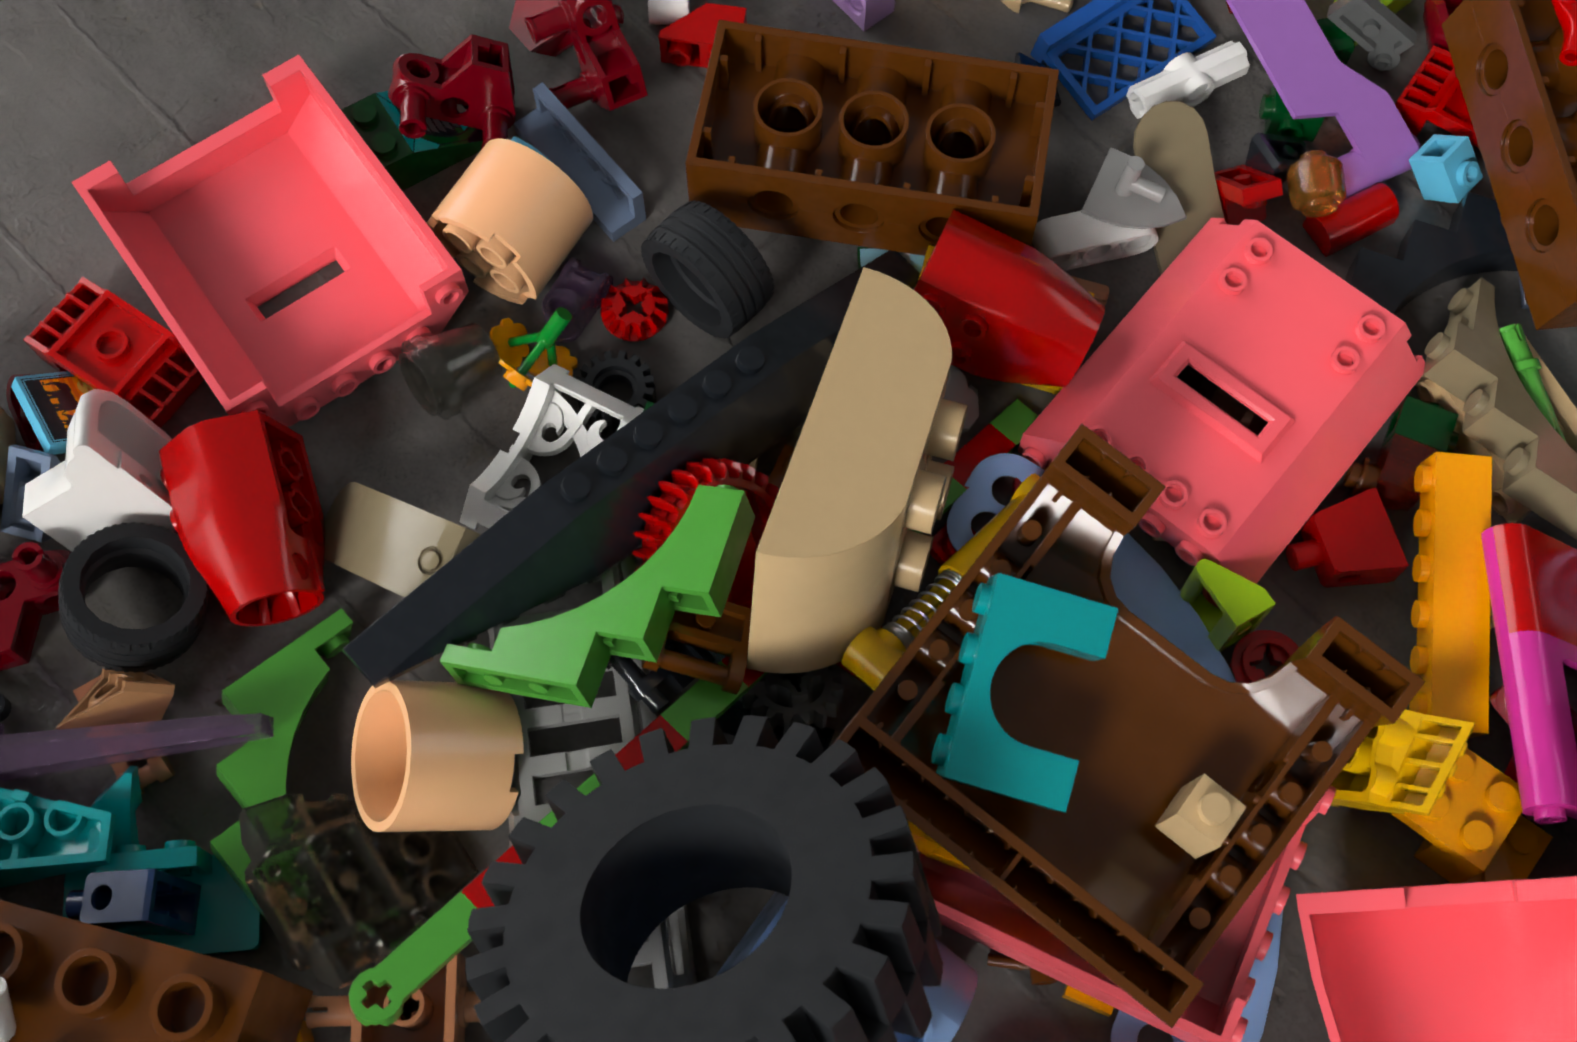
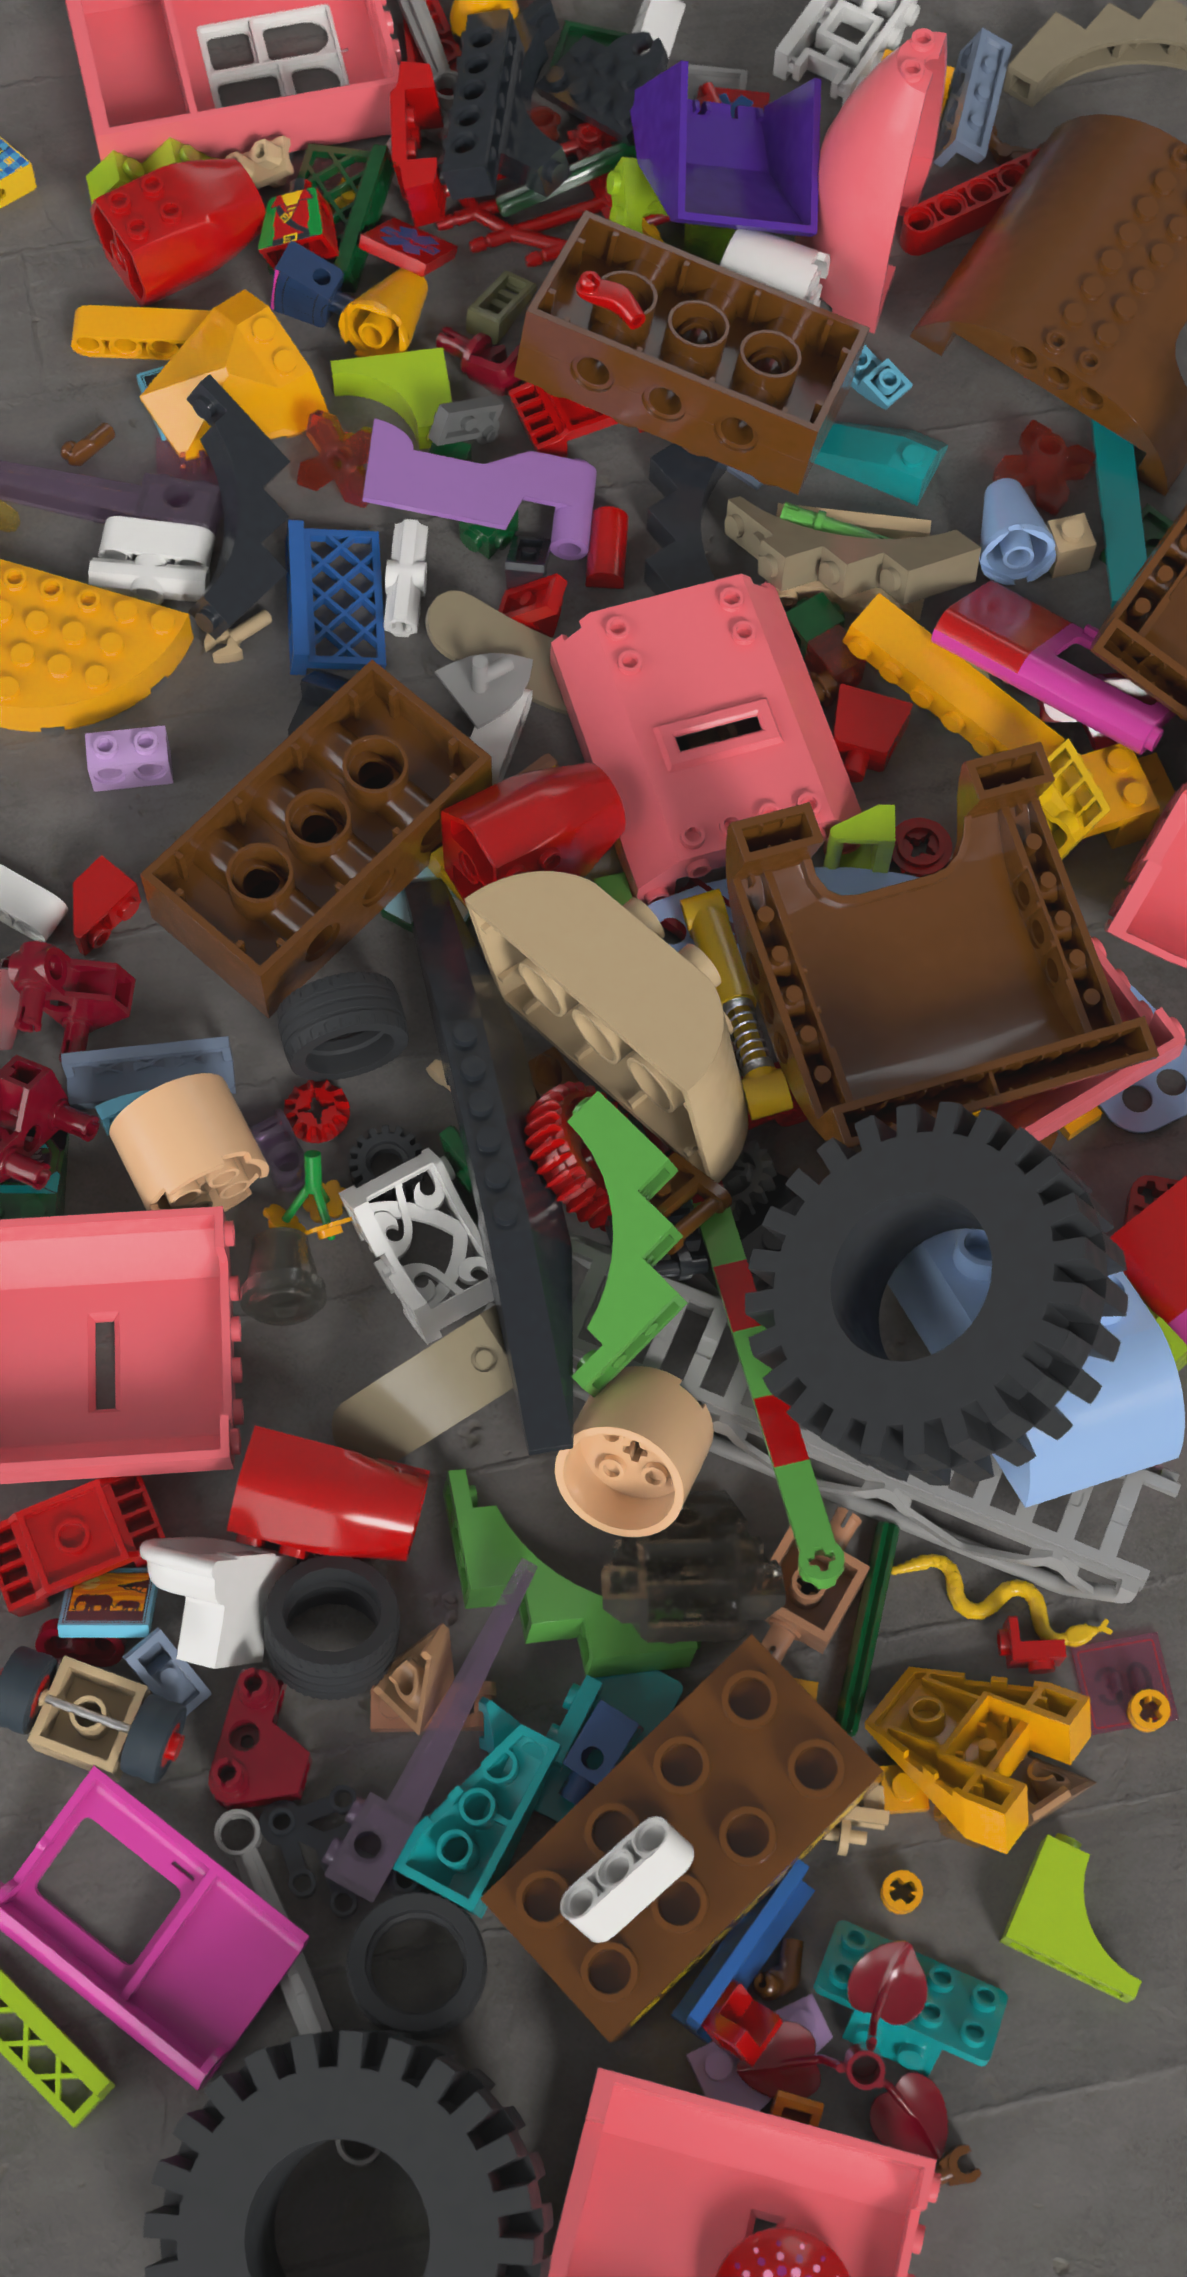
camera: 60 degrees left, 0 degrees up
(975, 744) = (825, 975): teal arch -> none
(1200, 816) = (1027, 948): tan brick -> none
(1316, 184) = (573, 552): clear orange head -> none
(1446, 168) = (618, 457): medium azure brick -> none

